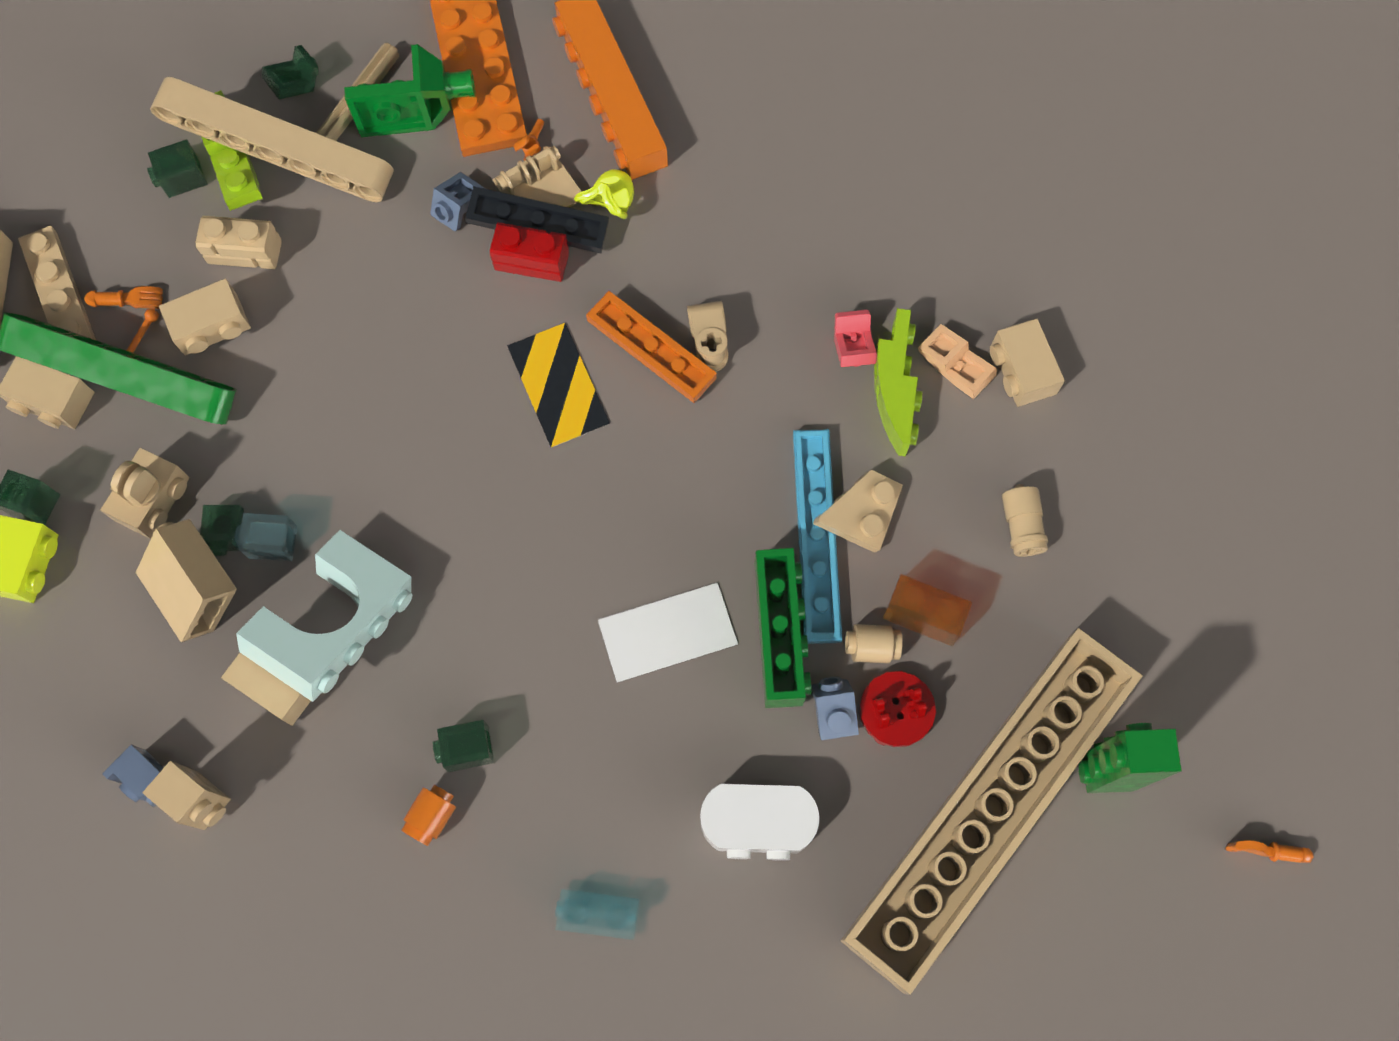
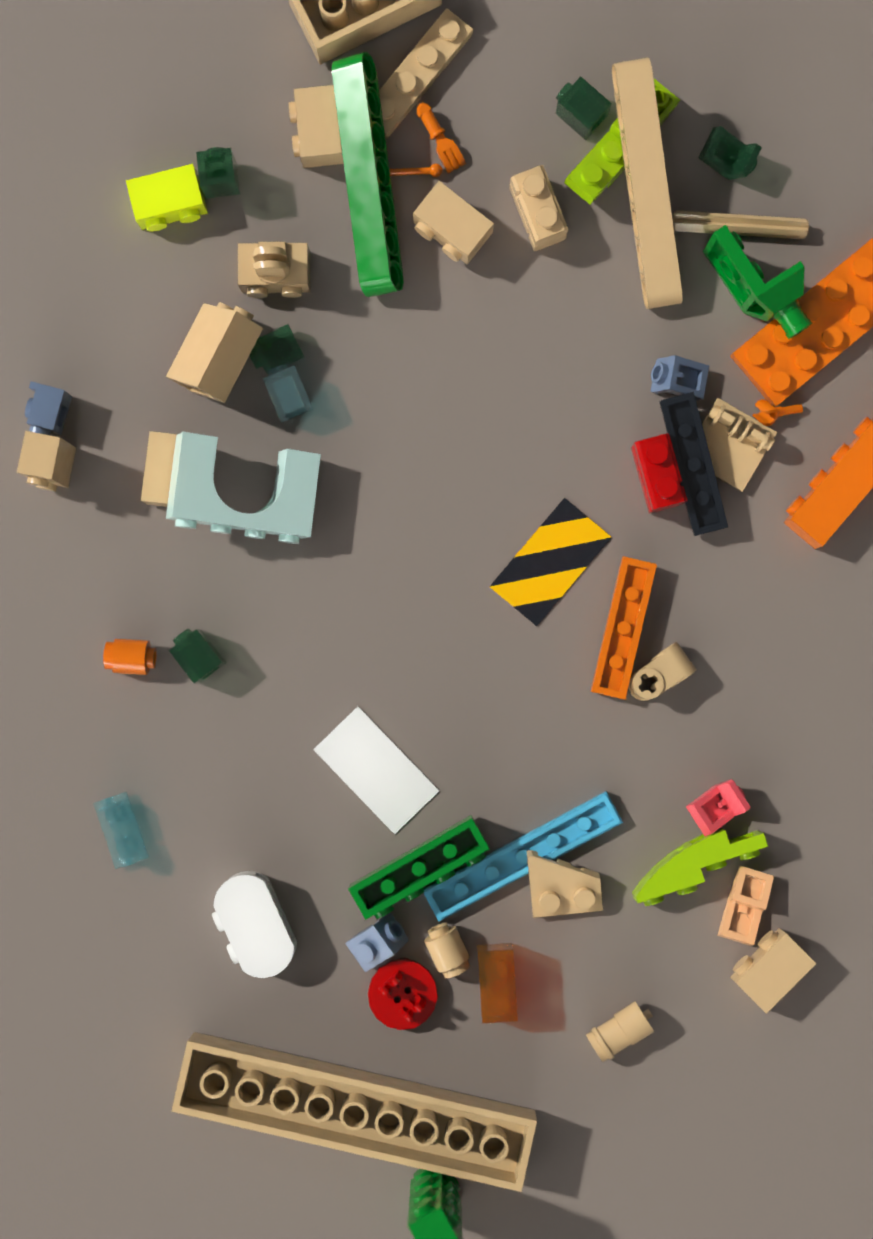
camera: 70 degrees right, 15 degrees up
(611, 190) = (759, 514): neon yellow piece -> none

